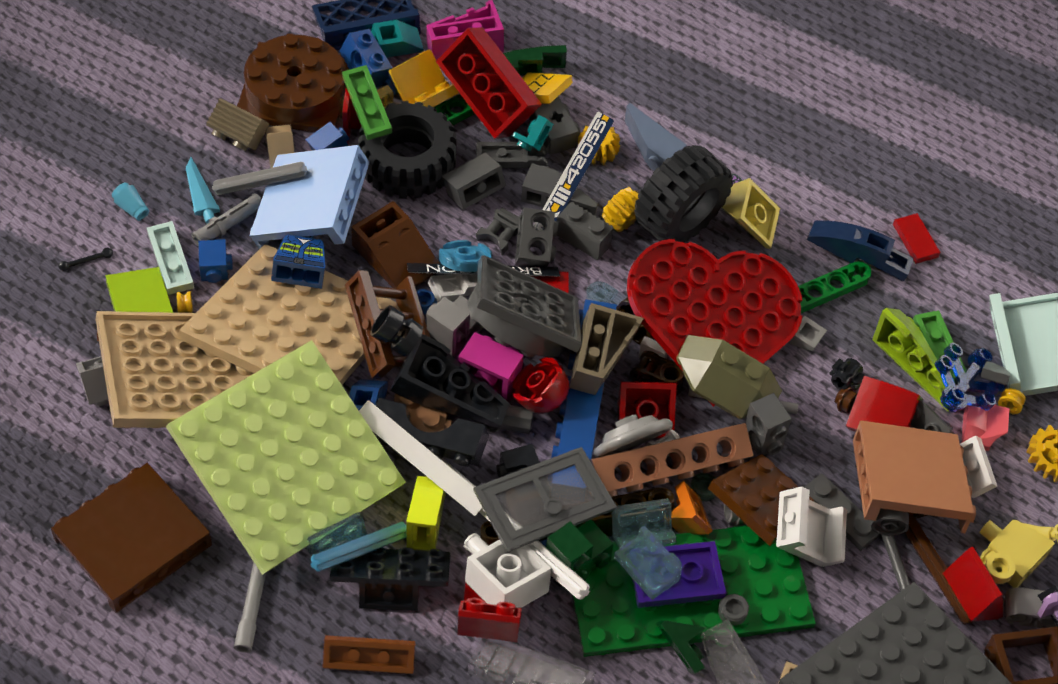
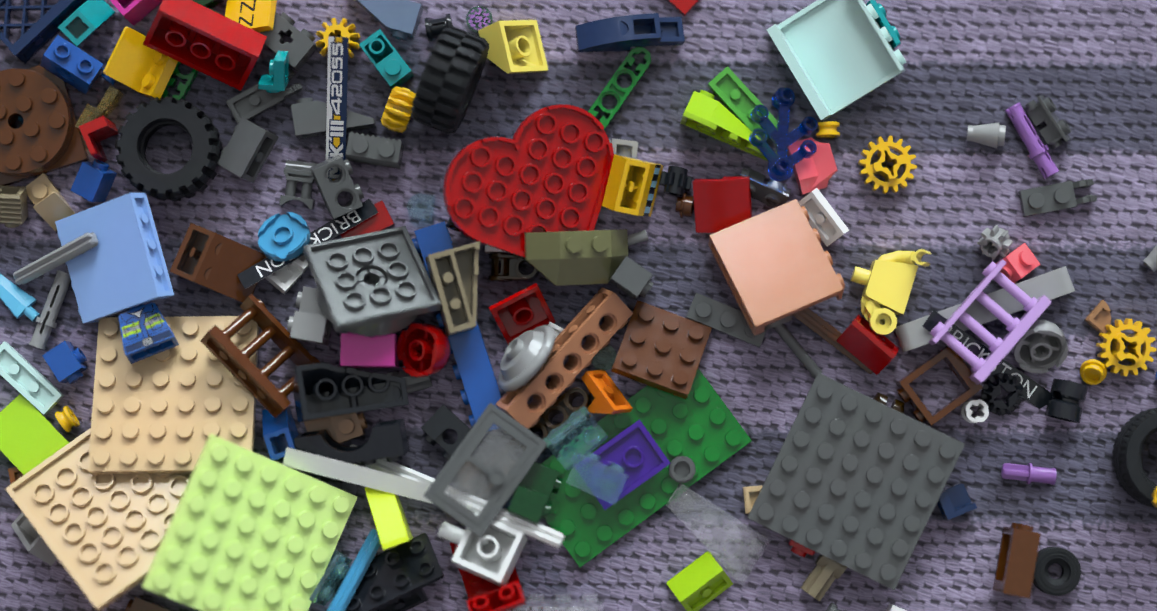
camera: 20 degrees left, 30 degrees up
(367, 102) = (109, 137): bright green plate -> none
(388, 325) = (276, 377): black wheel -> none
(426, 296) = (279, 299): blue plate -> none
(632, 167) = (386, 59): none -> teal slope
(678, 637) = (653, 520): dark green slope -> none
(807, 355) = (632, 186): none -> yellow slope
(810, 528) = (712, 363): white panel -> none
(995, 373) = (804, 115): dark grey tile -> none

